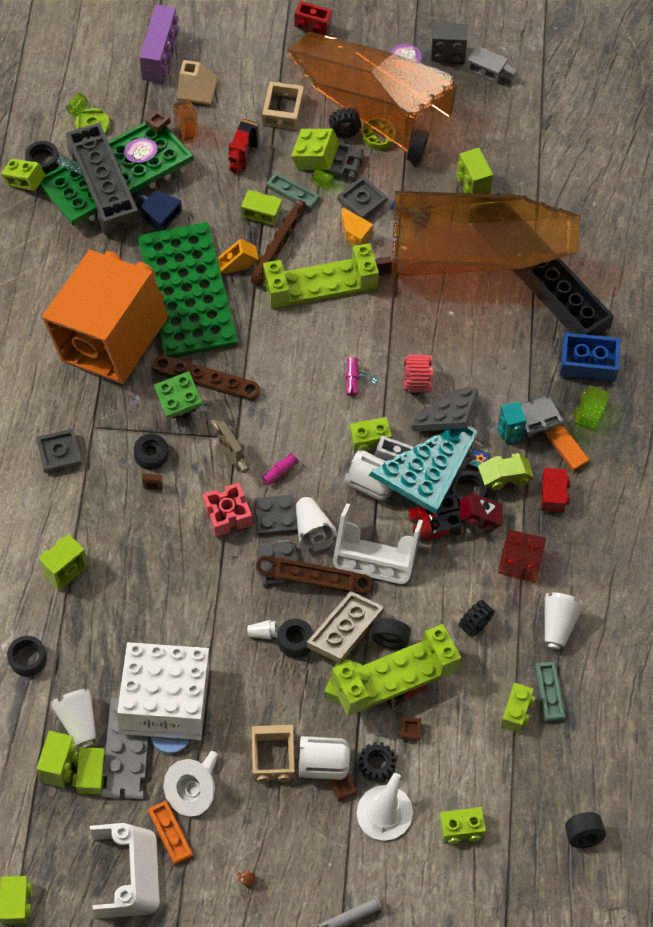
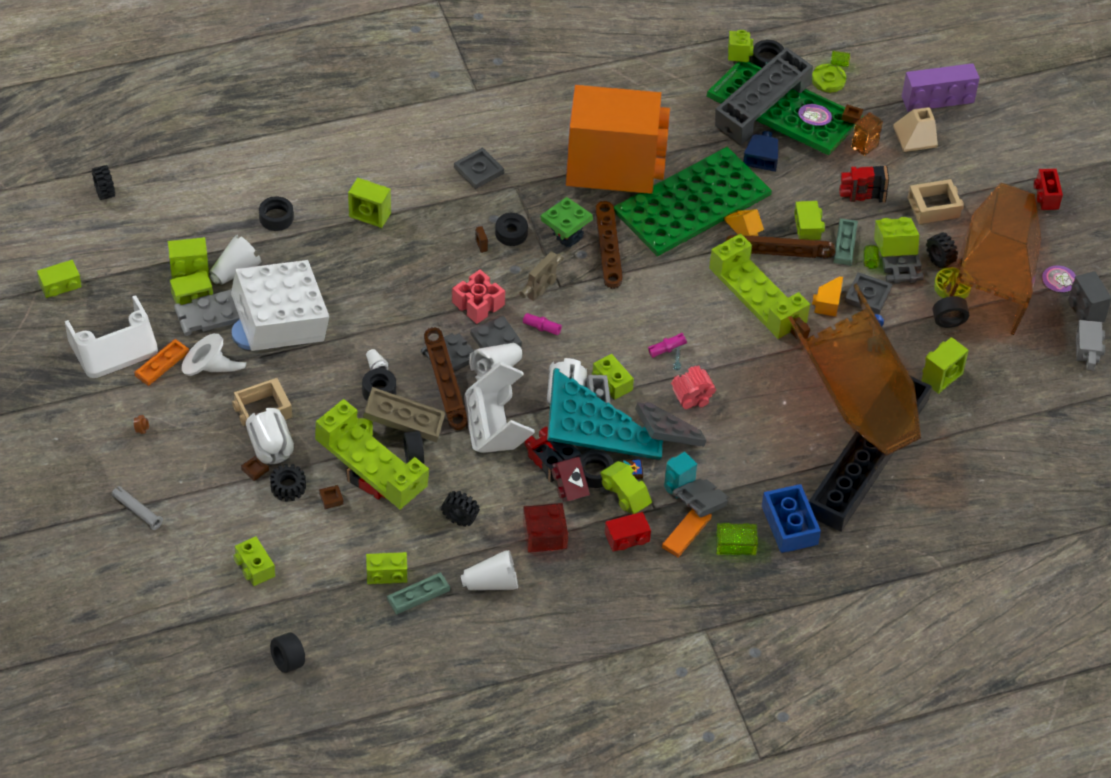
camera: 65 degrees right, 10 degrees down
(385, 811) = (245, 504): white piece -> none

